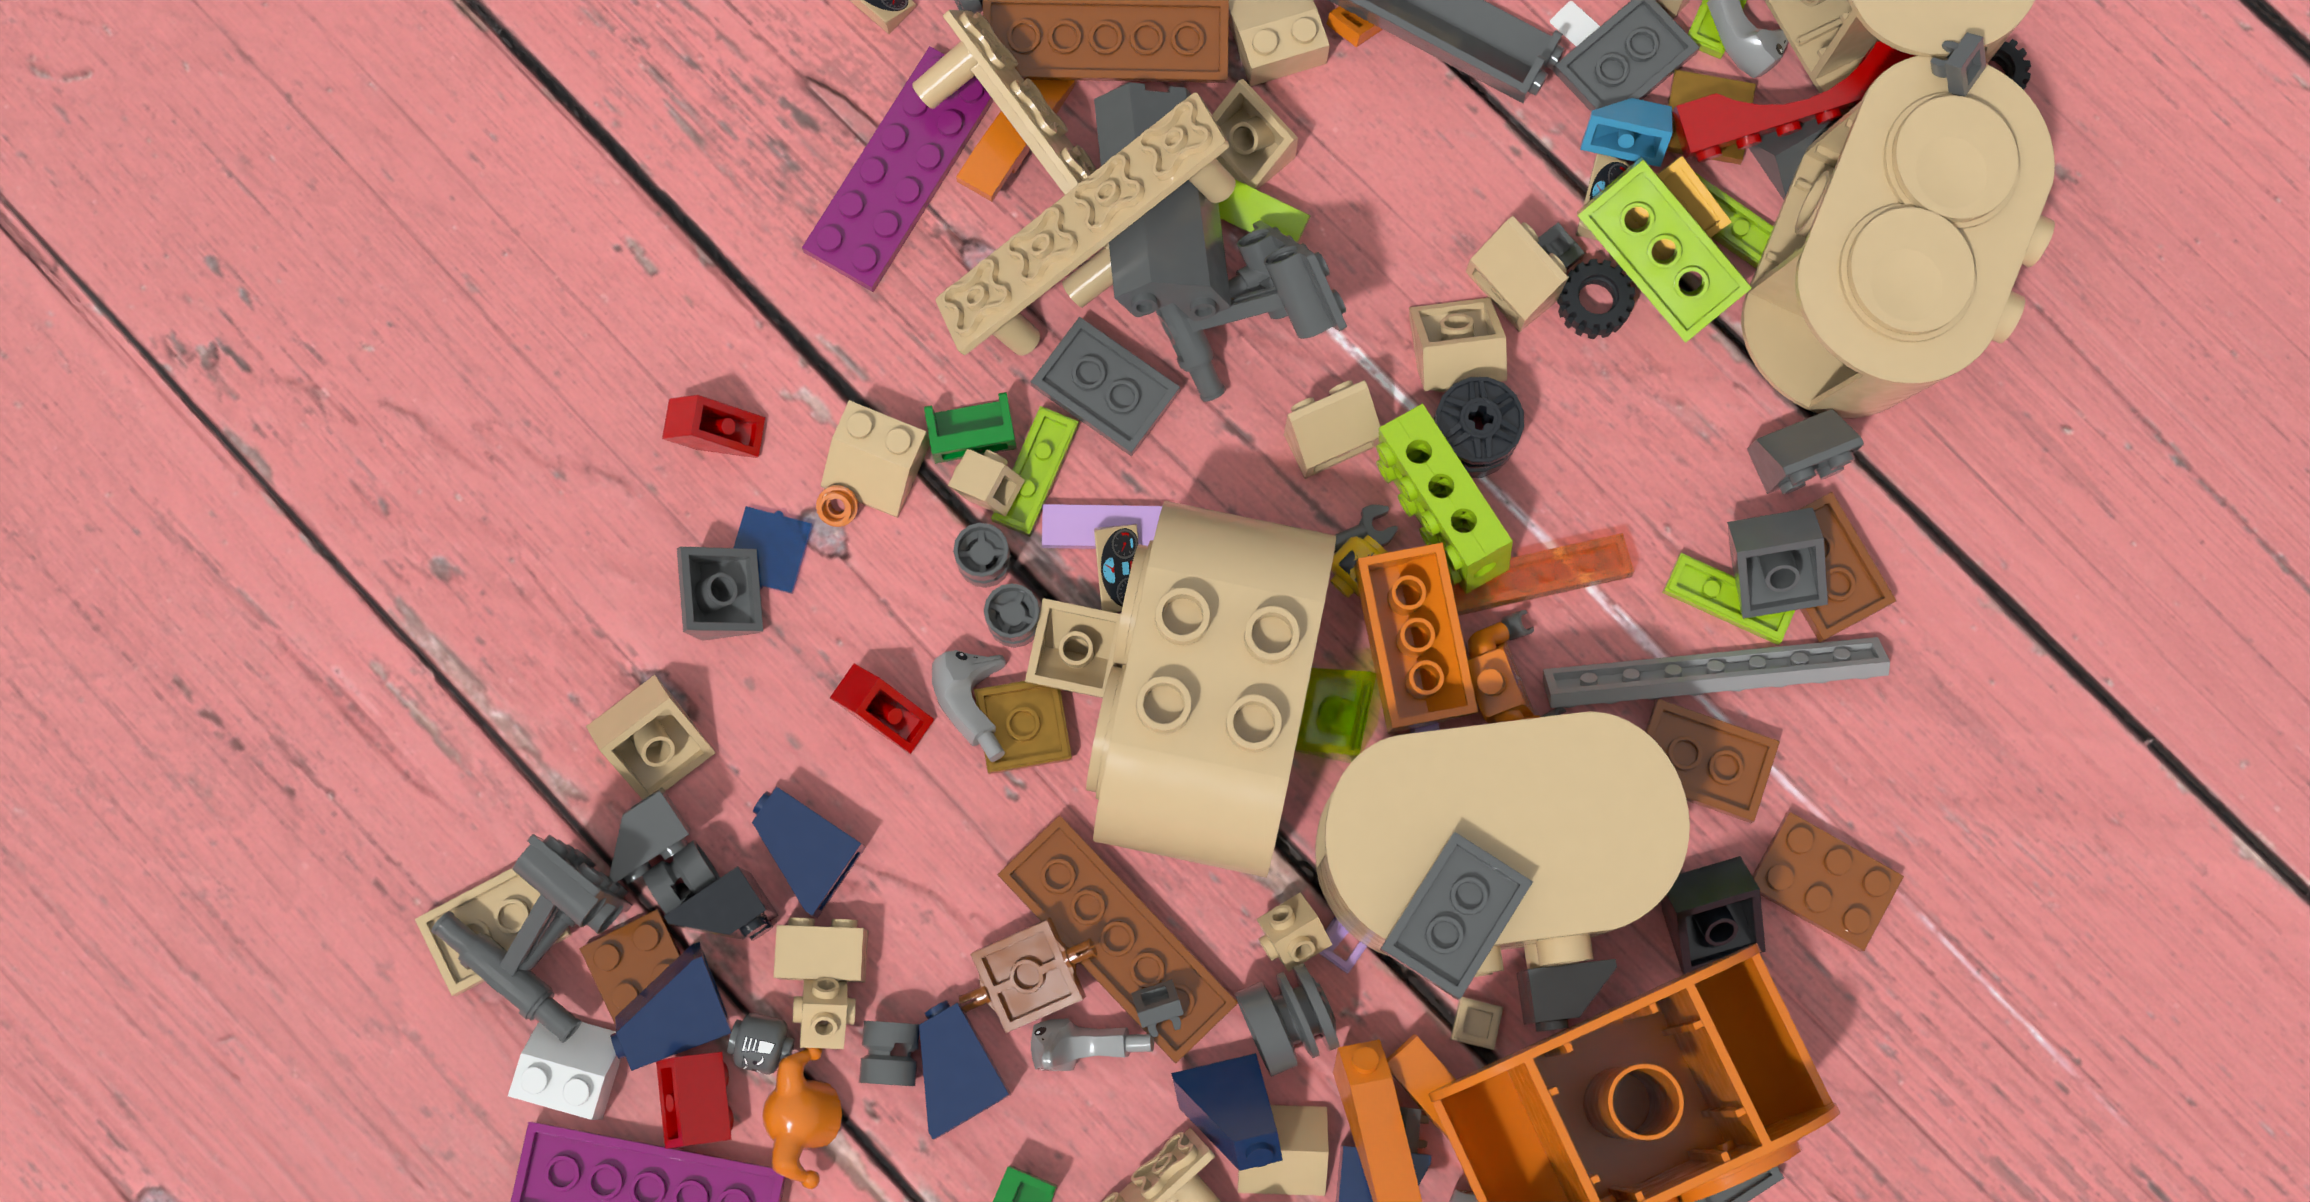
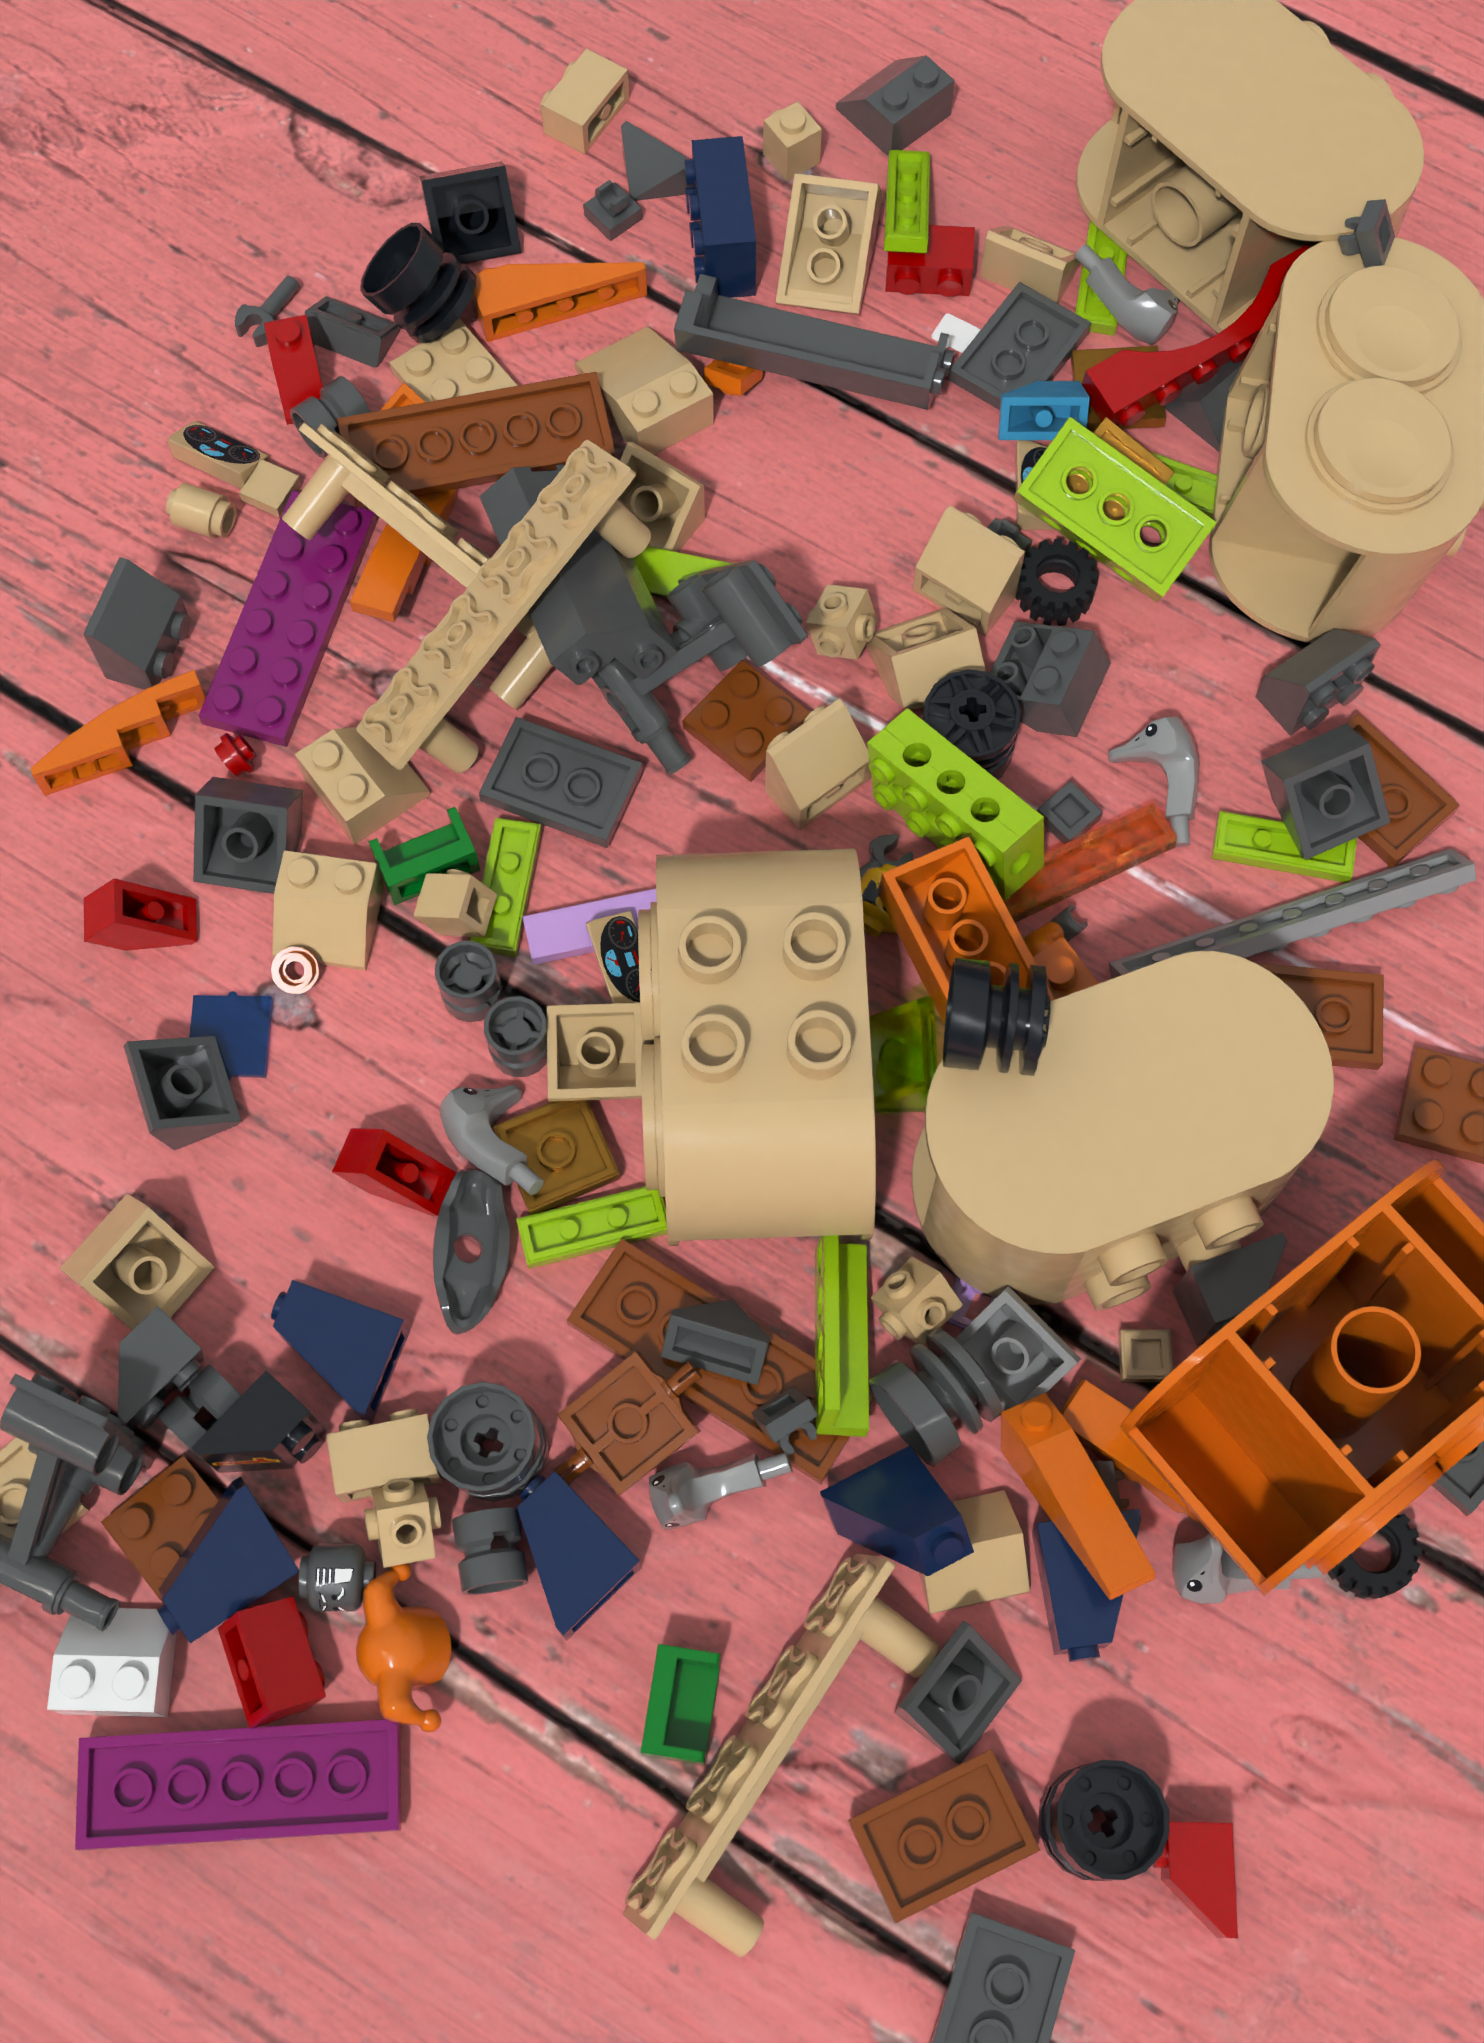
camera: 15 degrees left, 10 degrees down
(715, 254) = (104, 742): none -> orange slope
(765, 154) = (136, 627): none -> dark grey slope
(820, 369) = (244, 833): none -> dark grey slope
(827, 292) = (236, 754): none -> red plate
(843, 48) = (200, 511): none -> tan brick
(883, 967) = (488, 1413): none -> dark grey wheel
(910, 37) = (269, 488): none -> tan tile
(920, 824) = (474, 1210): none -> dark grey piece
(926, 346) = (358, 782): none -> tan slope
(1034, 795) = (592, 1226): none -> lime tile
(1118, 924) = (717, 1340): none -> dark grey slope
(1221, 952) = (841, 1338): none -> lime fence
(1282, 367) = (743, 719): none -> dark orange plate
(1363, 996) = (1016, 1349): none -> light grey slope
(1390, 295) = (842, 622): none -> tan brick
(1408, 738) = (995, 1016): none -> black wheel
(1456, 915) = (1101, 1201): dark grey plate -> none
(1545, 524) = (1069, 813): none -> dark grey plate
(1563, 390) = (1052, 674): none -> dark grey slope
(1655, 487) = (1172, 748): none -> light grey animal
(1713, 913) = (1362, 1161): black slope -> none

